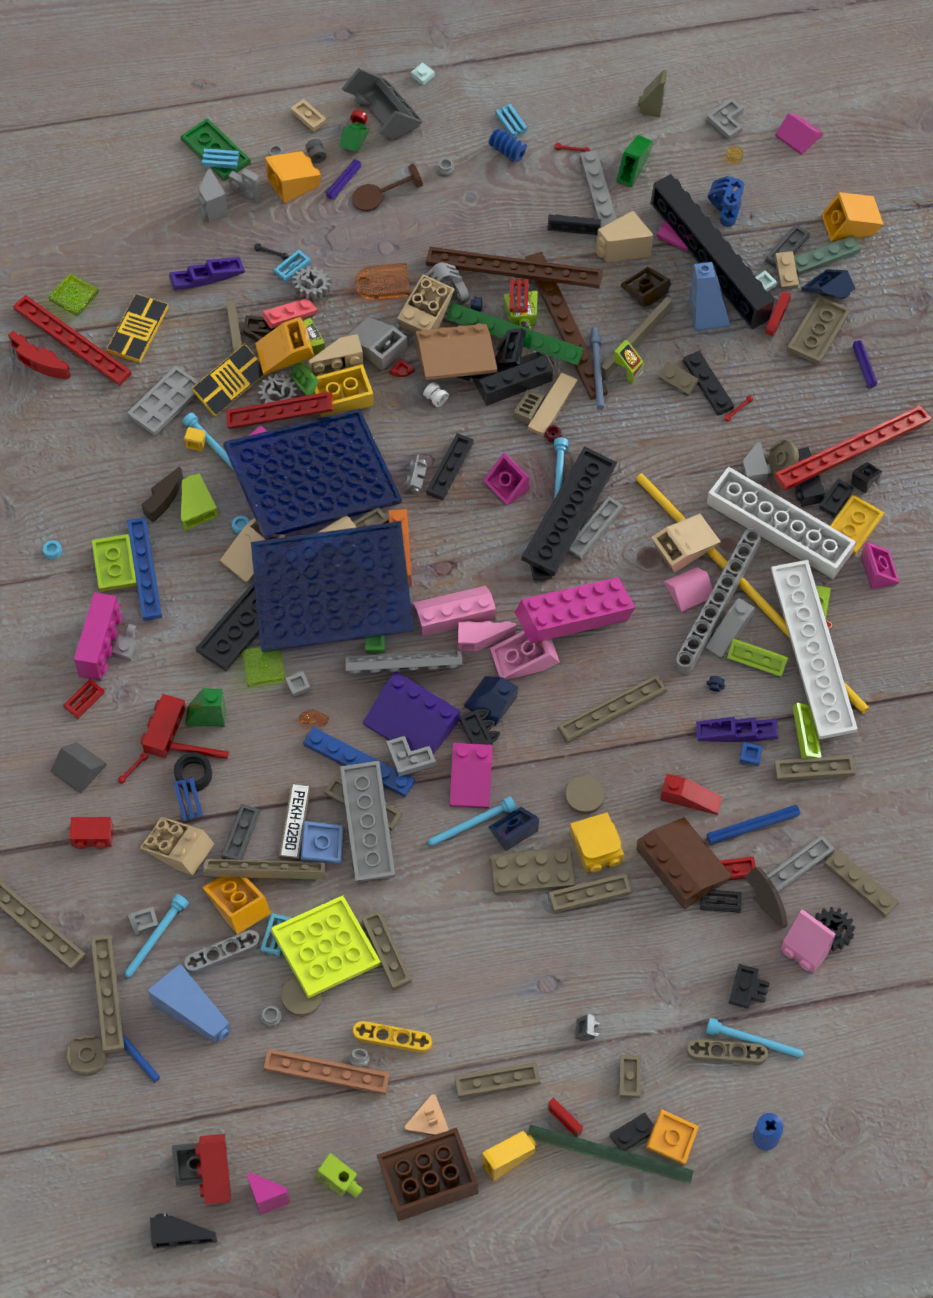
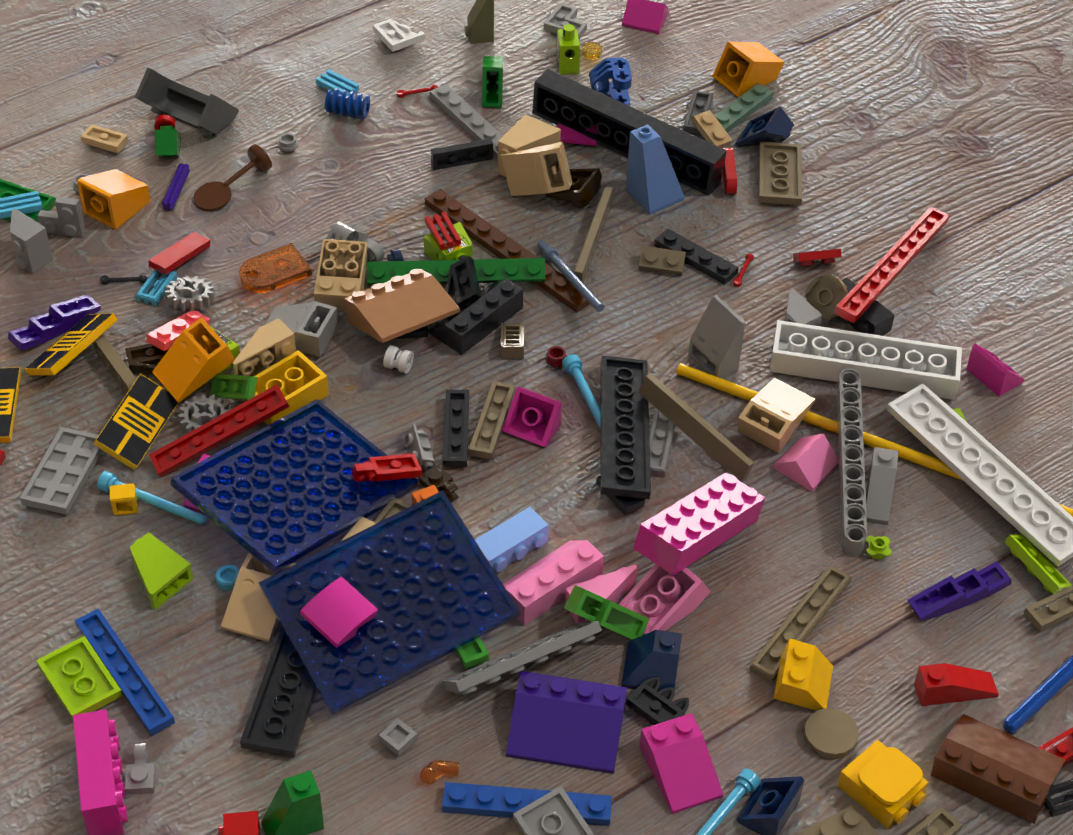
camera: 25 degrees left, 15 degrees down
(162, 495) = (109, 577): dark brown slope -> none
(209, 298) = (71, 344): none -> tile
(263, 666) = (340, 733): clear neon green plate -> none
(292, 584) = (338, 611): none -> dark pink slope
(316, 151) = (128, 165): dark grey wheel -> none
(319, 243) = (179, 253): none -> tile
(381, 484) = (387, 468): none -> red hinge
(402, 369) = (343, 348): red tile -> none
(407, 760) = (589, 775): light grey plate -> none
(416, 505) = (441, 480): none -> dark brown plate
(422, 74) = (216, 70): light aqua plate -> none
(441, 571) = (513, 539): none -> light blue brick
(475, 651) = (606, 612): none -> bright green slope
(478, 470) = (492, 420): none -> dark tan plate
(516, 267) = (422, 207): reddish brown plate -> none
(552, 404) = (538, 329): tan tile -> none
(581, 86) = (397, 35): none -> white wing
(587, 749) = (803, 676): none -> yellow slope
(619, 531) = (696, 427): none -> dark tan tile
(620, 265) = (537, 170): none -> tan slope
(630, 360) = (601, 253): slope -> none
(673, 468) = (718, 339): none -> light grey slope
(701, 679) = (878, 547): none -> lime plate
(711, 145) = (568, 42): none -> lime torso
(716, 683) = (902, 550): dark blue plate -> none
(751, 754) = (993, 612): blue plate -> none
(757, 657) = (931, 505): lime plate -> none
(794, 416) = (808, 258): none -> red plate
(836, 497) = (904, 319): black plate -> none
(857, 521) = (939, 329): yellow tile -> none
(864, 363) = (846, 189): dark purple axle -> none
(864, 476) = (921, 291): black slope -> none

